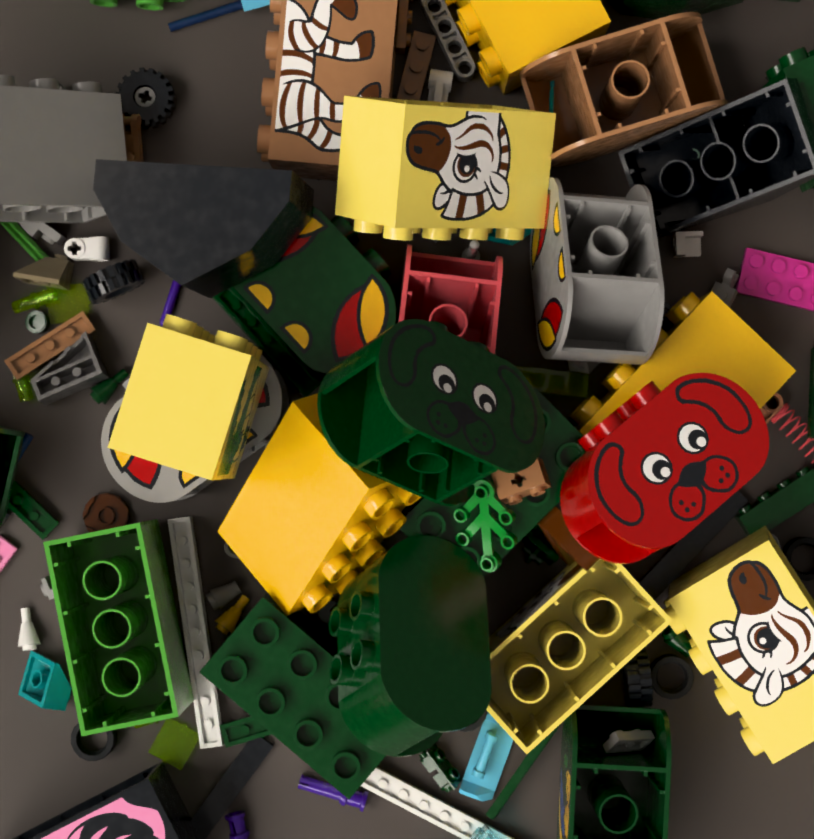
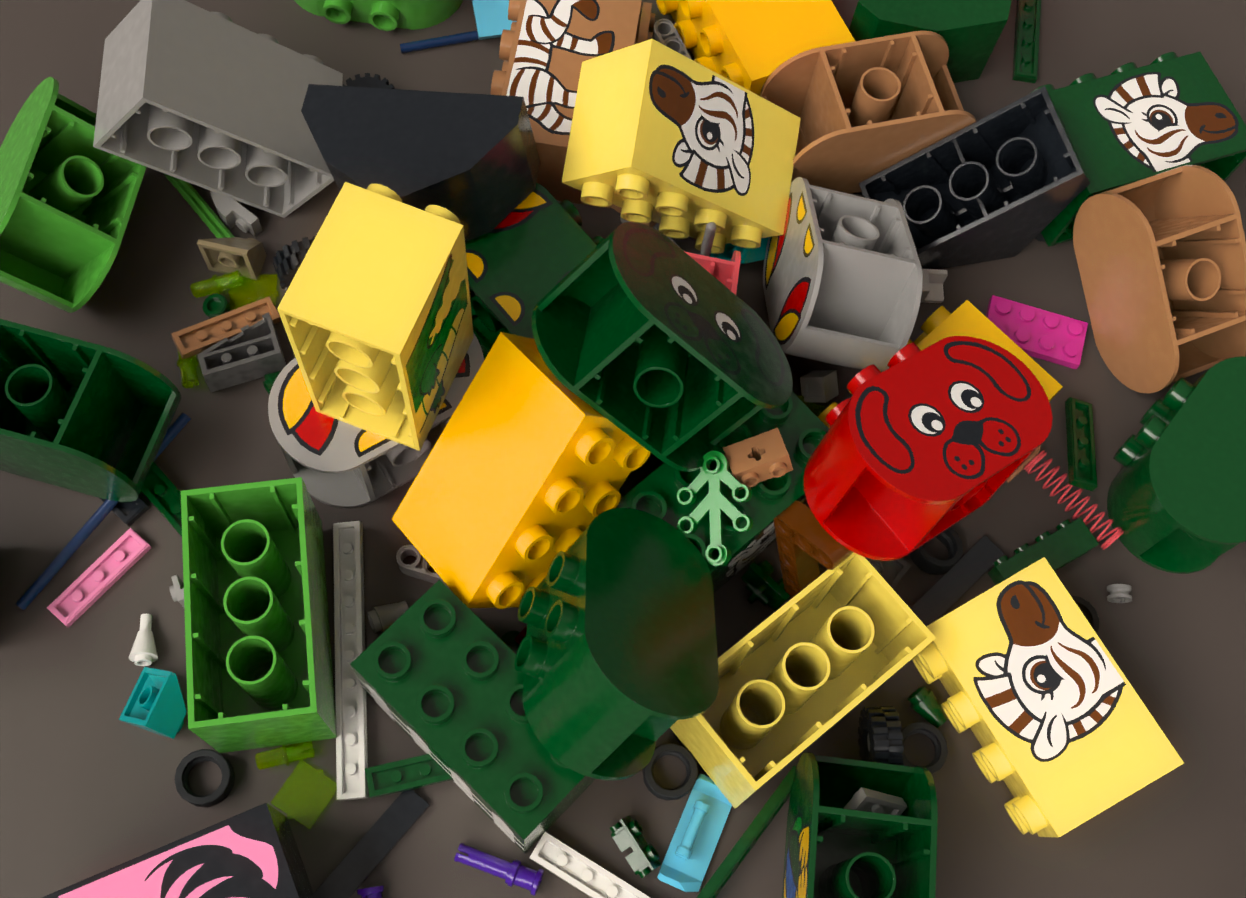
camera: 10 degrees left, 20 degrees down
(92, 249) = (282, 234): white piece -> none

